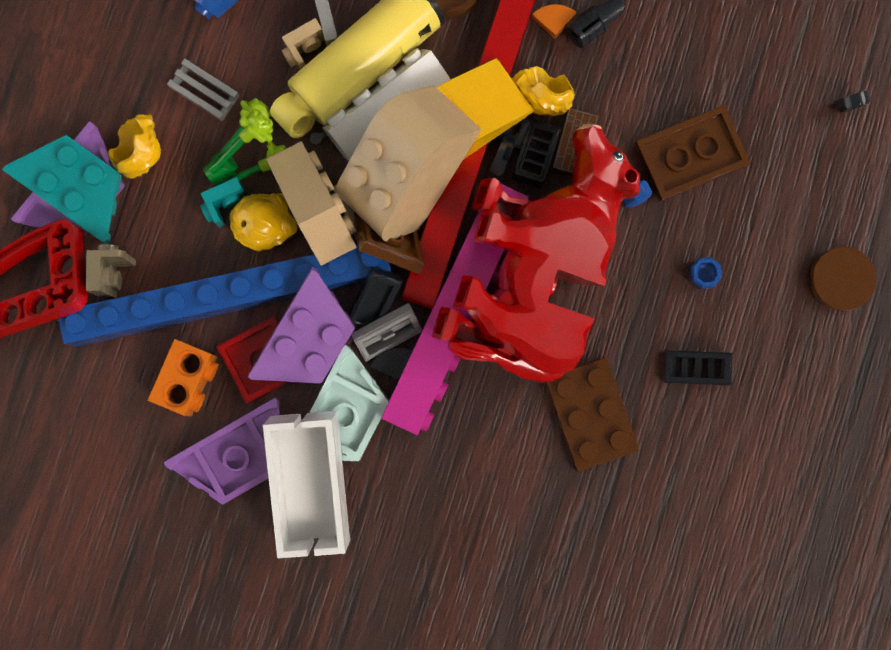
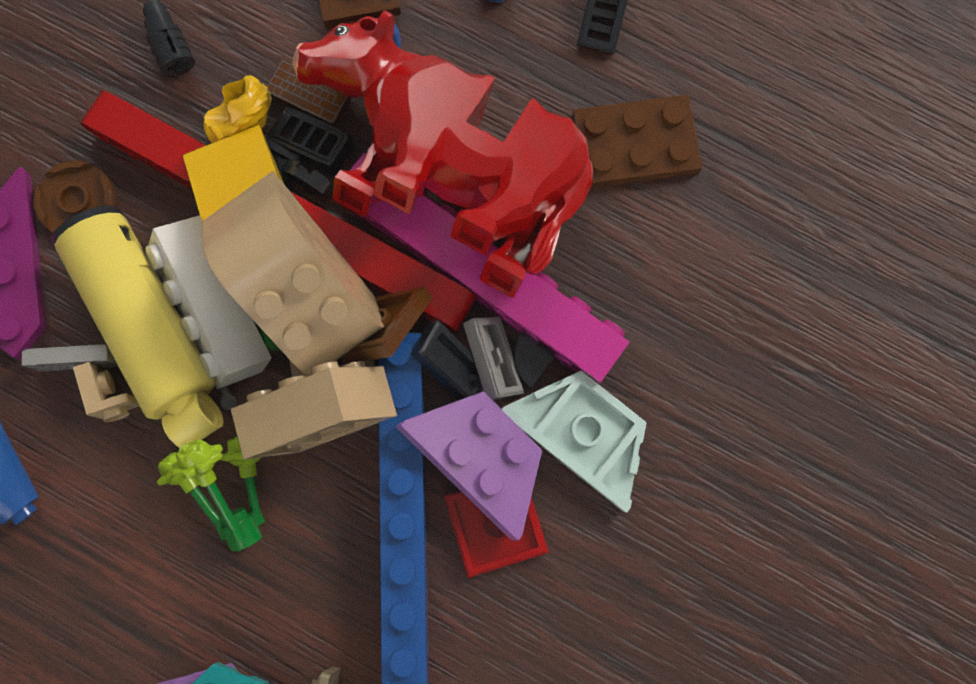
camera: 75 degrees left, 5 degrees down
(137, 147) = (185, 635): yellow hair -> none
(175, 374) = (494, 636): orange brick -> none
(181, 75) = (102, 560): light grey tile -> none
(223, 195) = (275, 528): teal bracket -> none
(230, 458) = (613, 579): medium lavender wing -> none
(266, 221) = (321, 480): yellow hair -> none
(306, 484) = (667, 487): white piece -> none
(554, 18) = (149, 87): orange tile -> none

